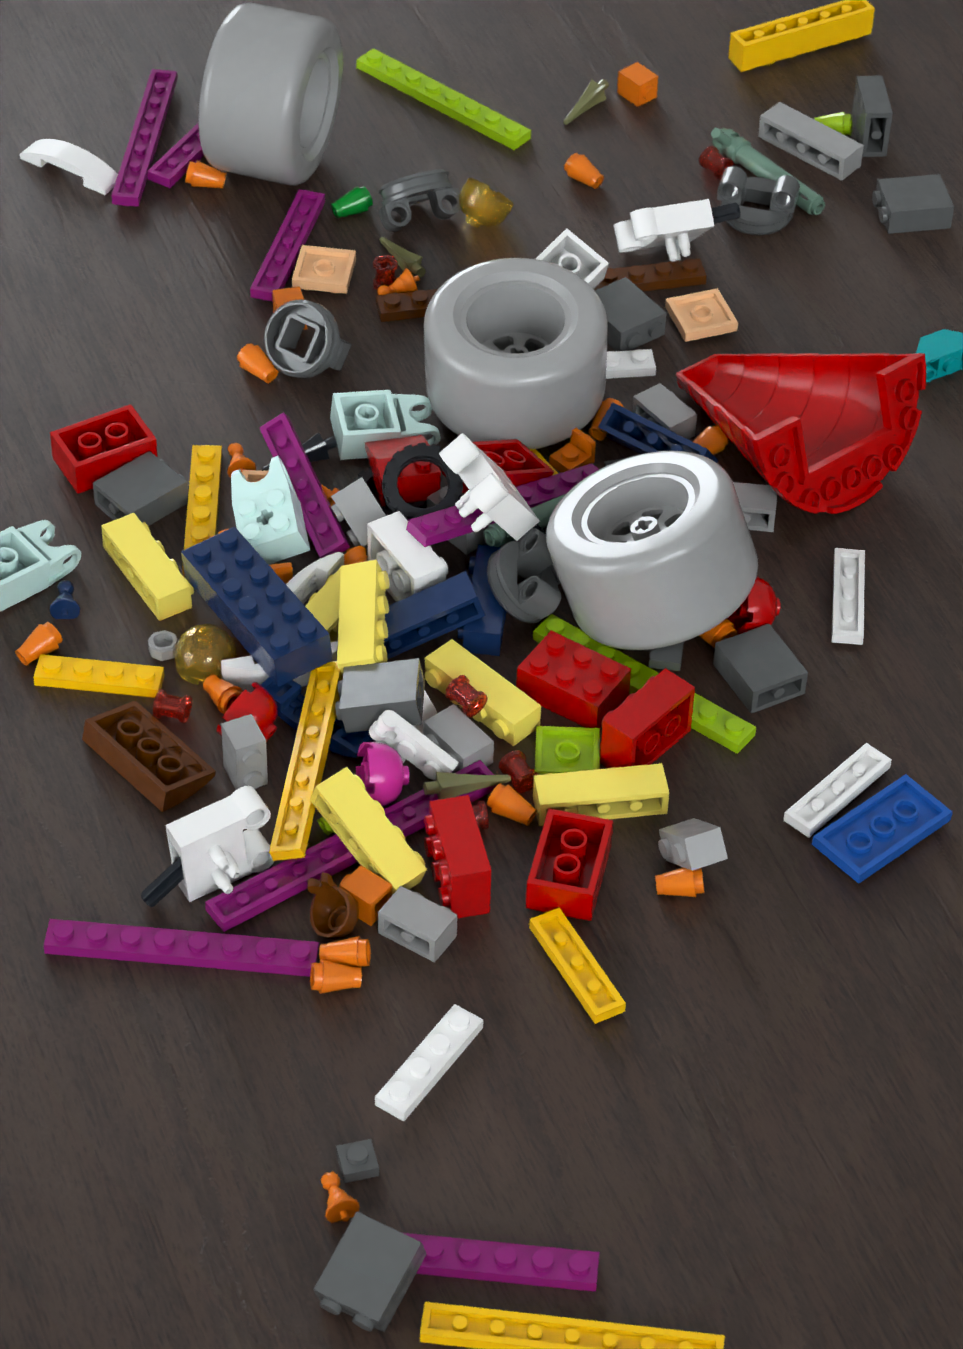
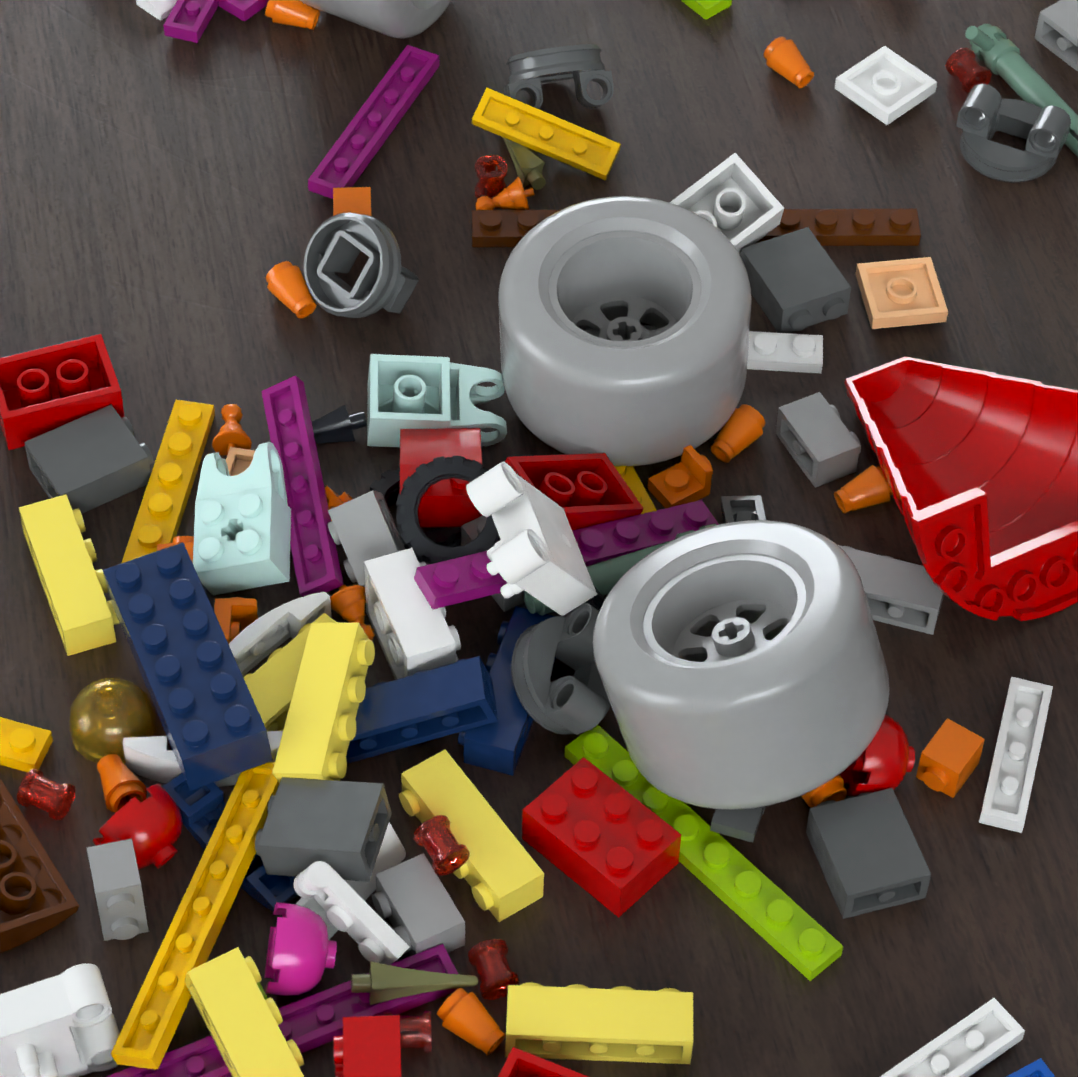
camera: 10 degrees right, 5 degrees up
(162, 645) = (57, 696): light grey tile -> none
(324, 269) = (413, 163): light nougat plate -> none
(353, 202) = (473, 72): green cone -> none
(418, 237) = (546, 133): none -> yellow plate
(482, 204) = (642, 96): clear yellow cylinder -> none
(566, 749) = (569, 945): lime tile -> none
(644, 435) = (797, 484): dark blue brick -> none
(647, 722) = (685, 924): red brick -> none
(658, 178) = (885, 85): none -> white plate
(671, 226) = (885, 162): white piece -> none
(803, 603) = (950, 758): none -> orange brick

